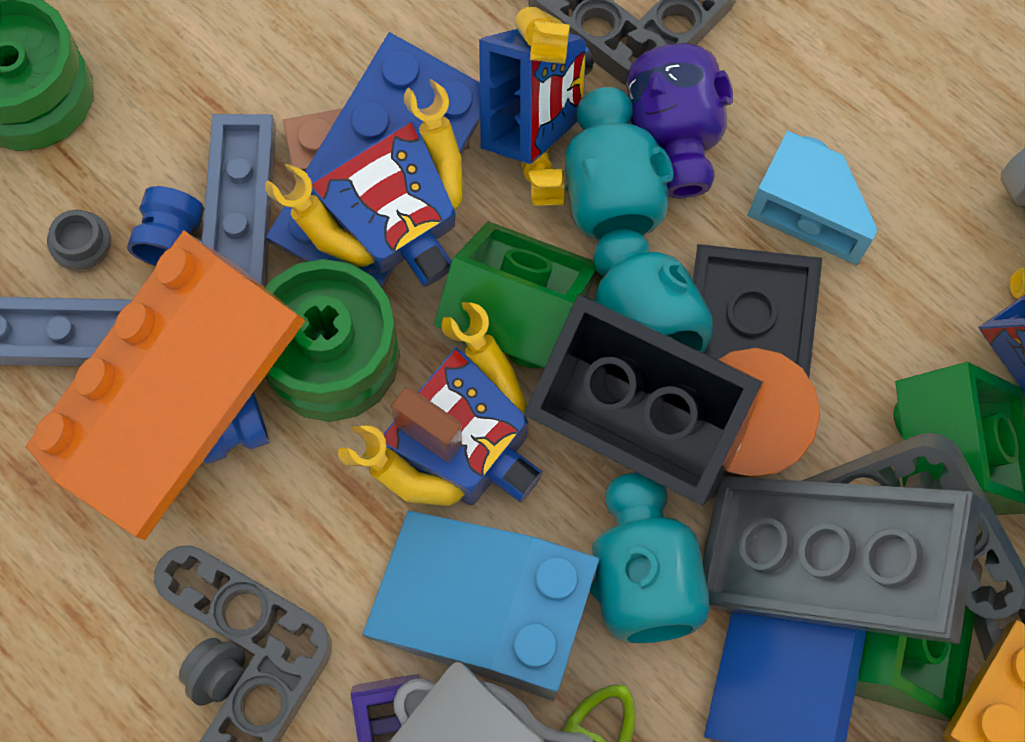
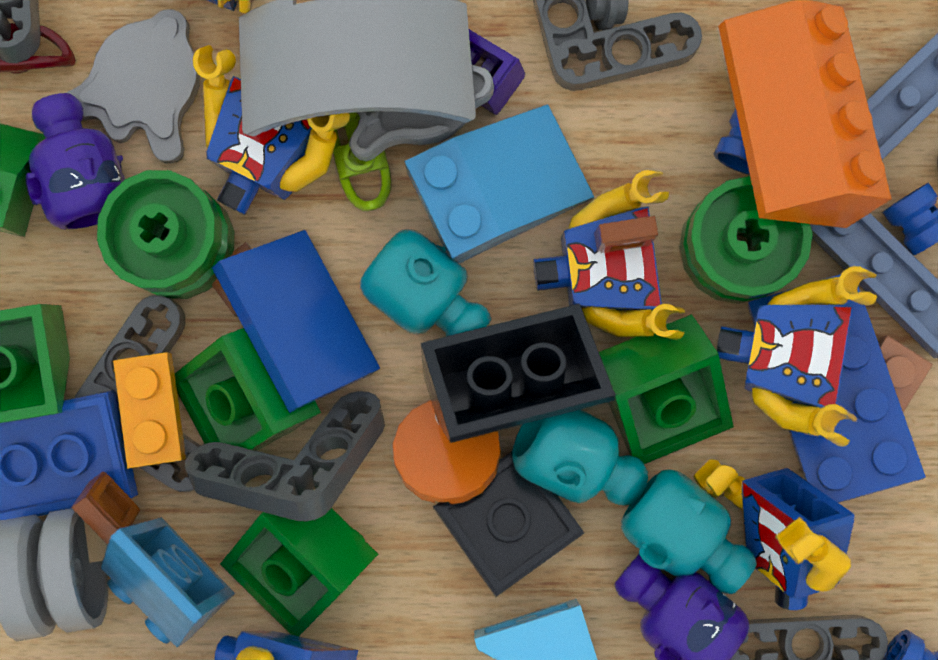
camera: 140 degrees right, 15 degrees up
(843, 555) = (313, 387): flat silver tile -> none

